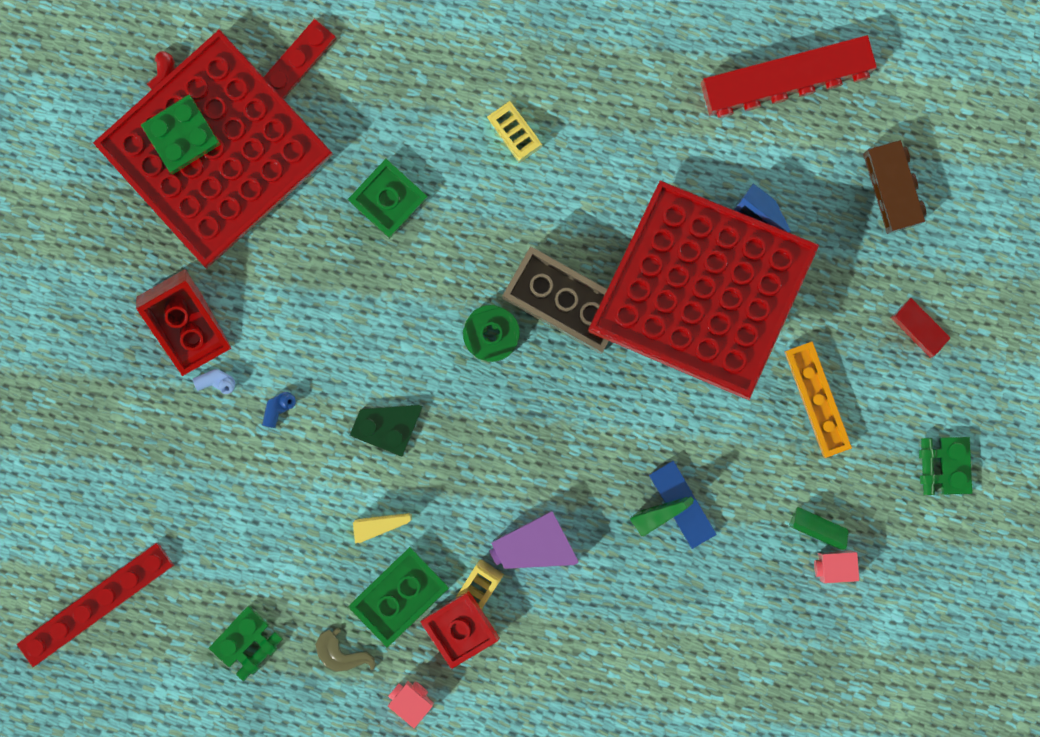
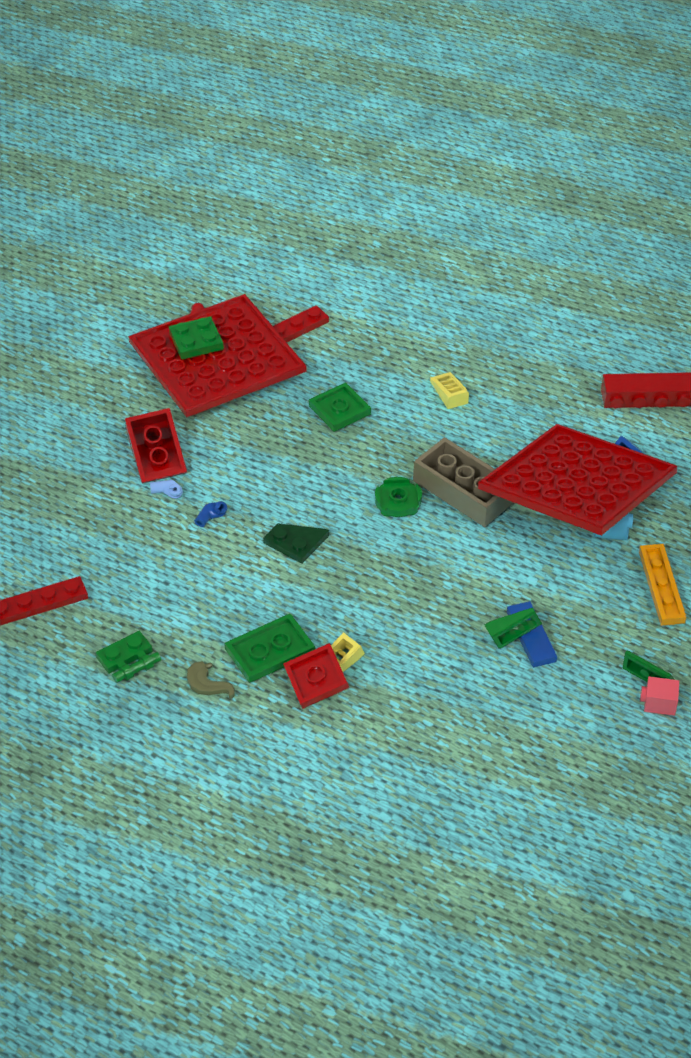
camera: 15 degrees right, 40 degrees down
(371, 527) = (268, 596): light yellow slope -> none
(410, 702) = (257, 721): coral brick -> none
(534, 545) = (396, 633): medium lavender slope -> none

